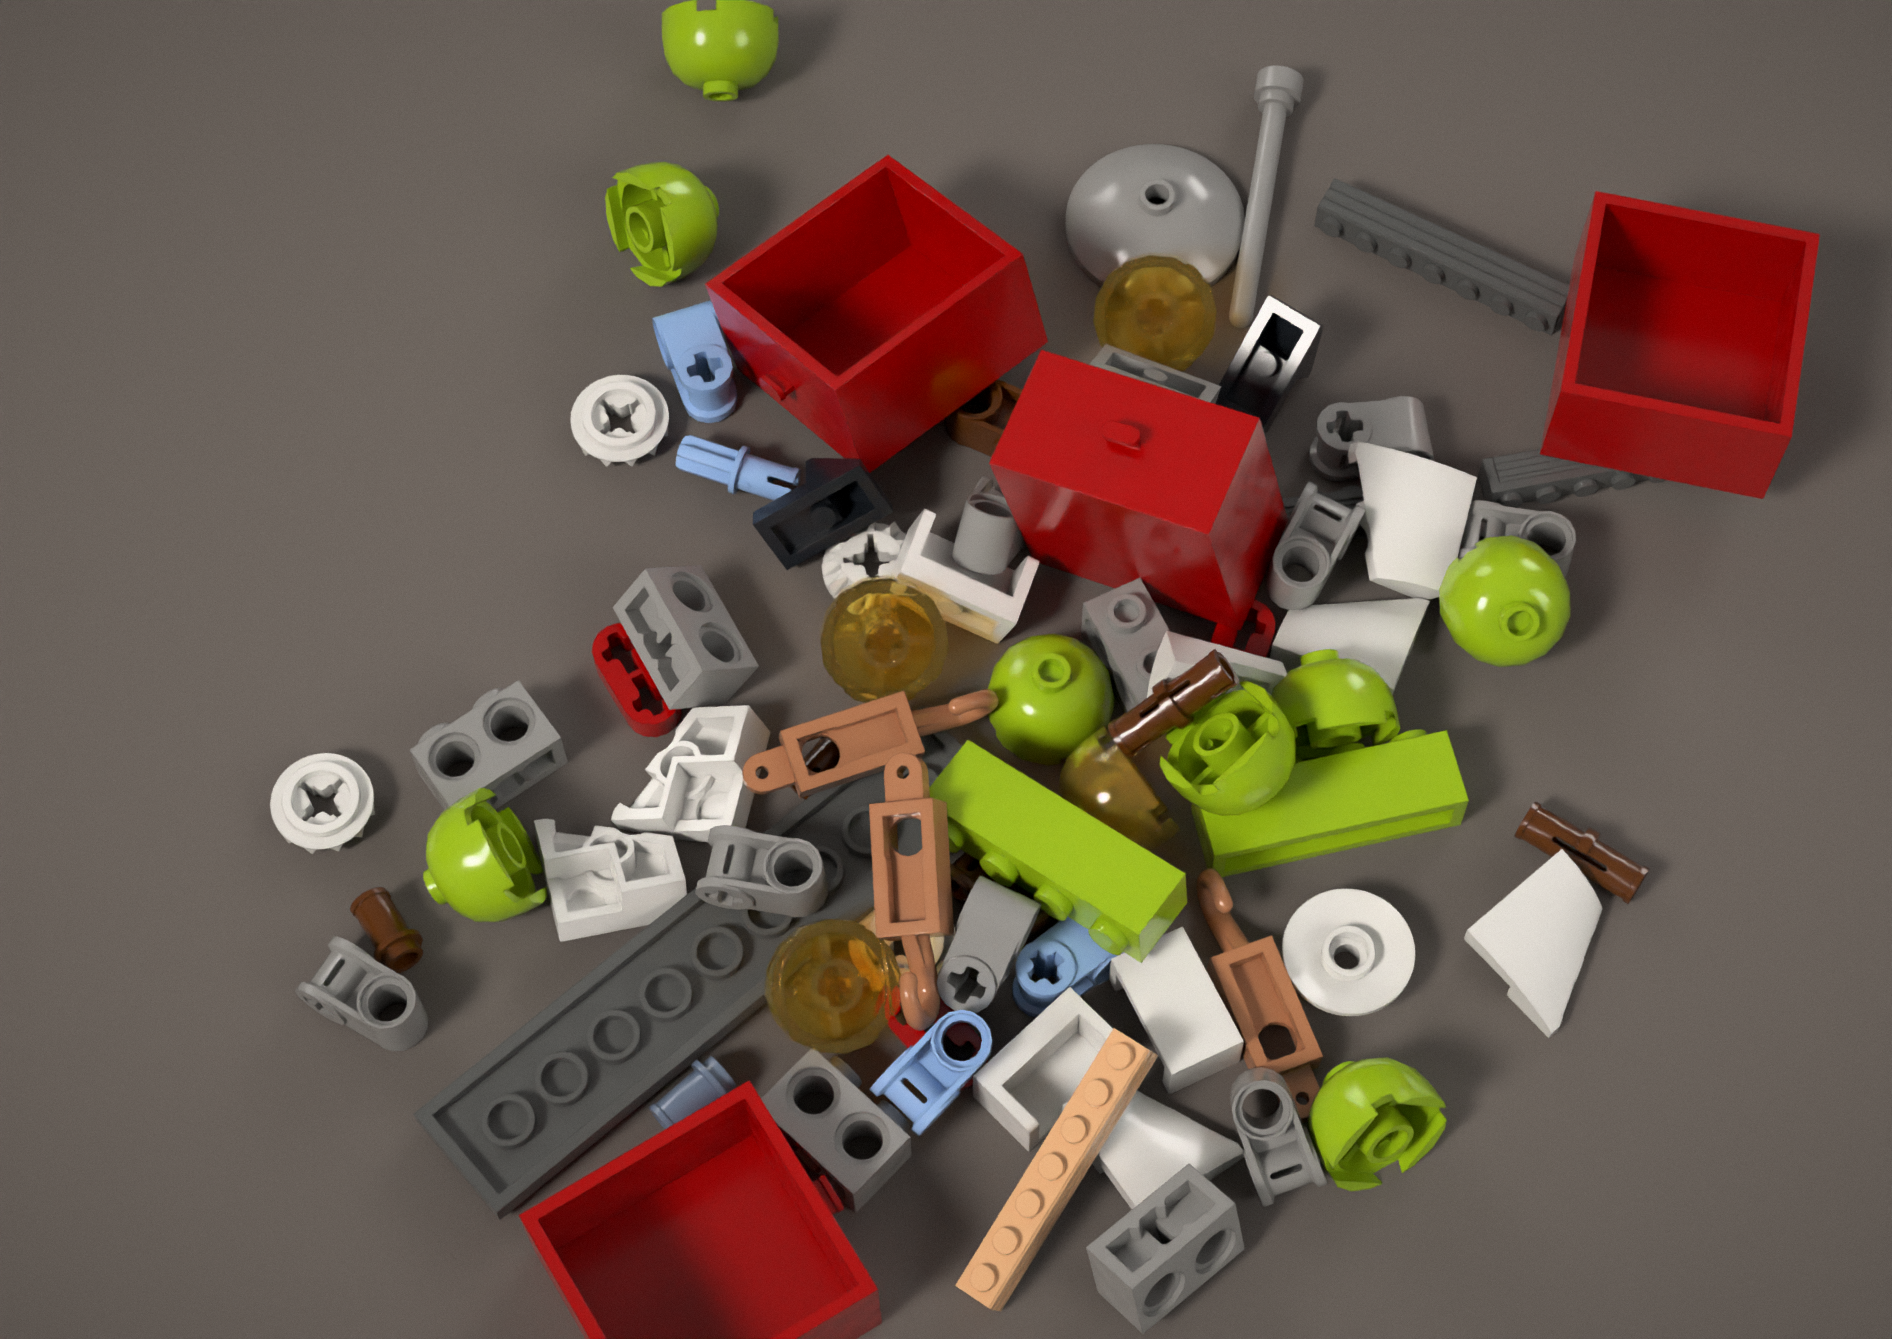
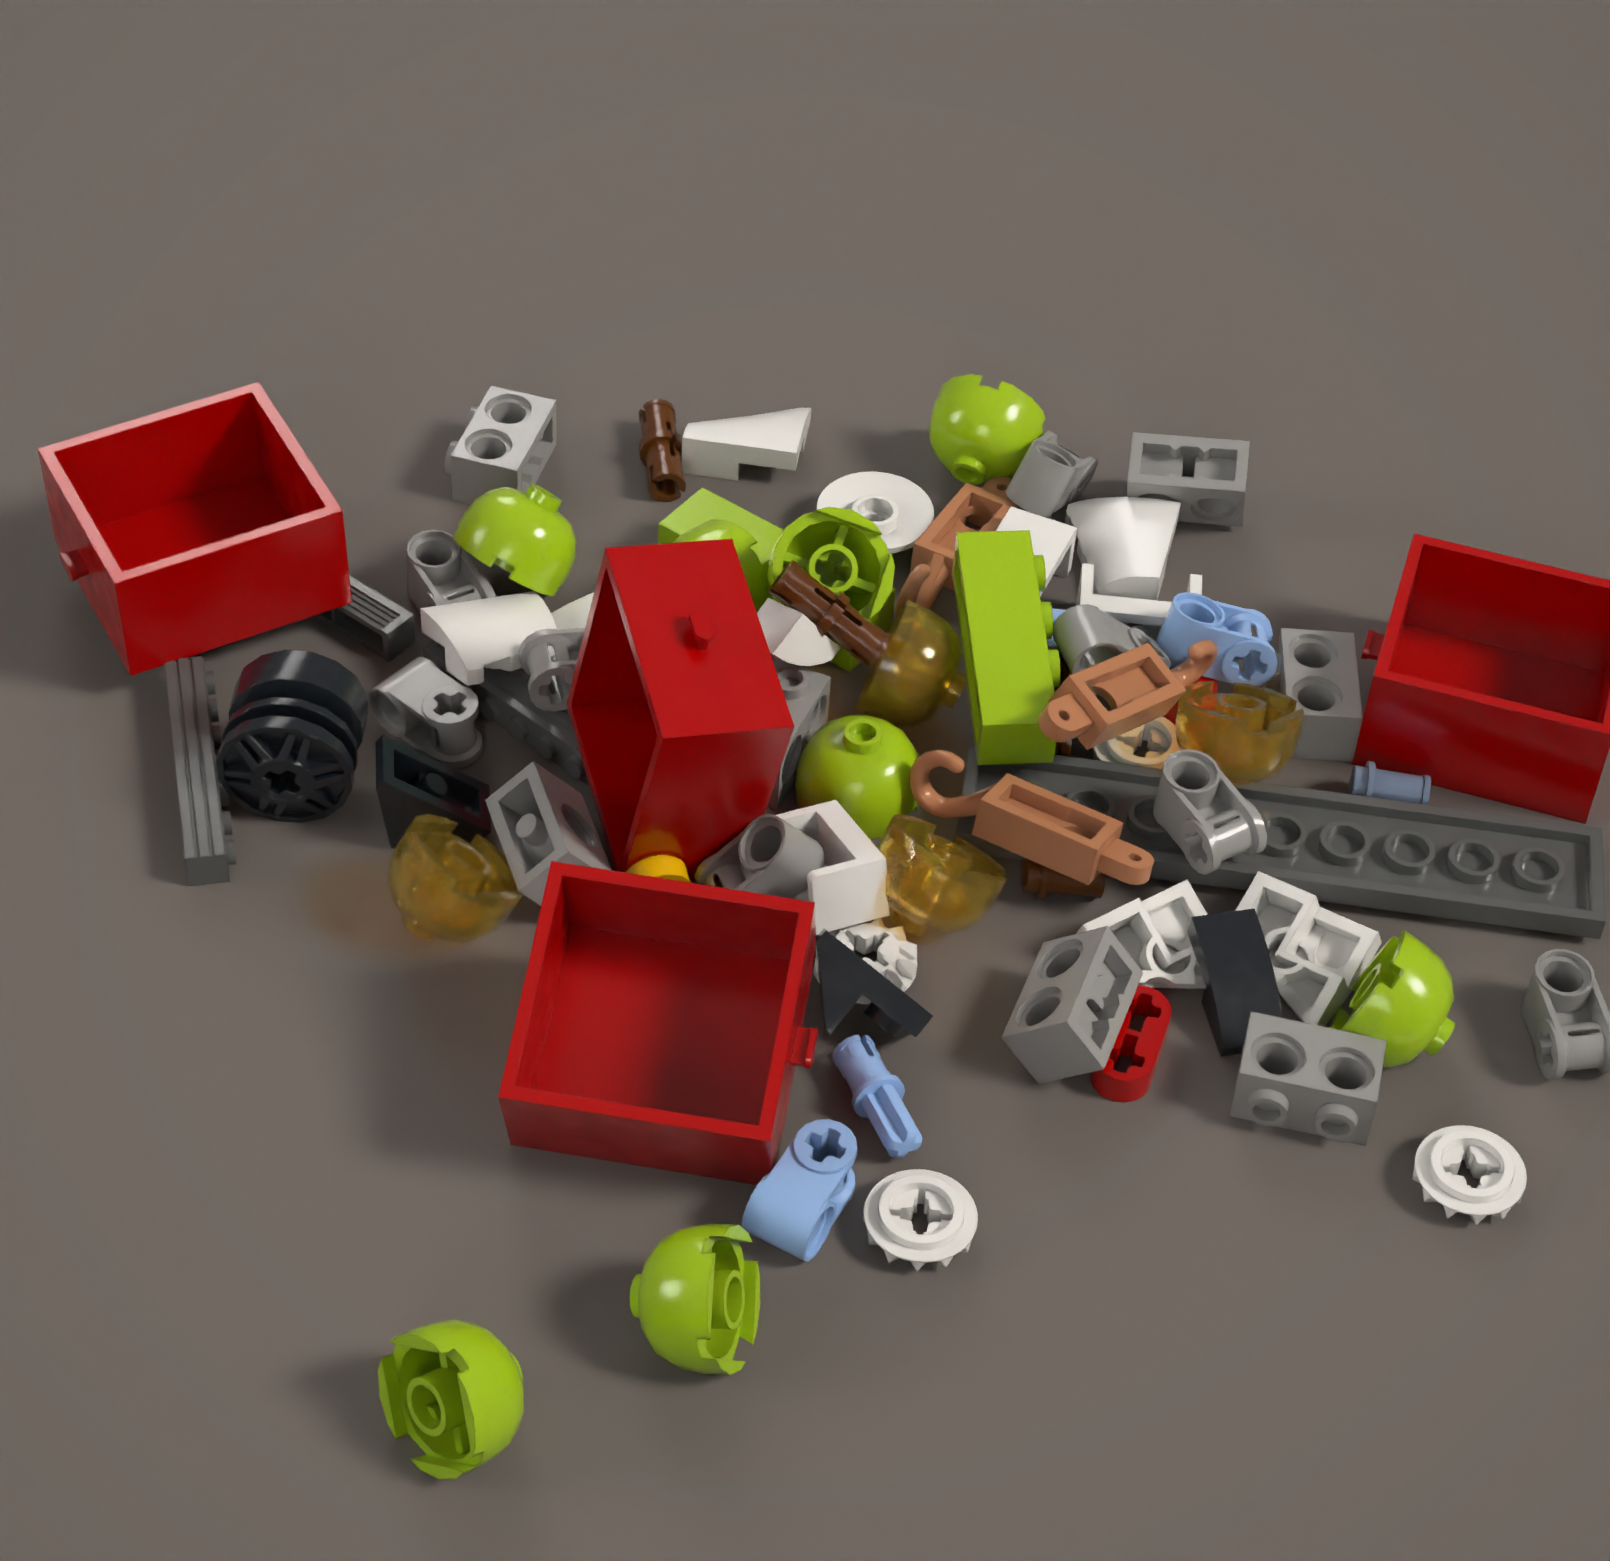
camera: 135 degrees left, 20 degrees down
(393, 940) = (1509, 1037): reddish brown pin -> none
(615, 788) = (1235, 973): none -> black slope
(1056, 1170) = (1206, 547): light nougat piece -> none
(1115, 221) = (330, 983): light grey dish -> none
(1277, 94) = (116, 959): light grey piece -> none
(1392, 297) = (293, 736): none -> black wheel
(1655, 717) = (502, 444): none -> light grey brick

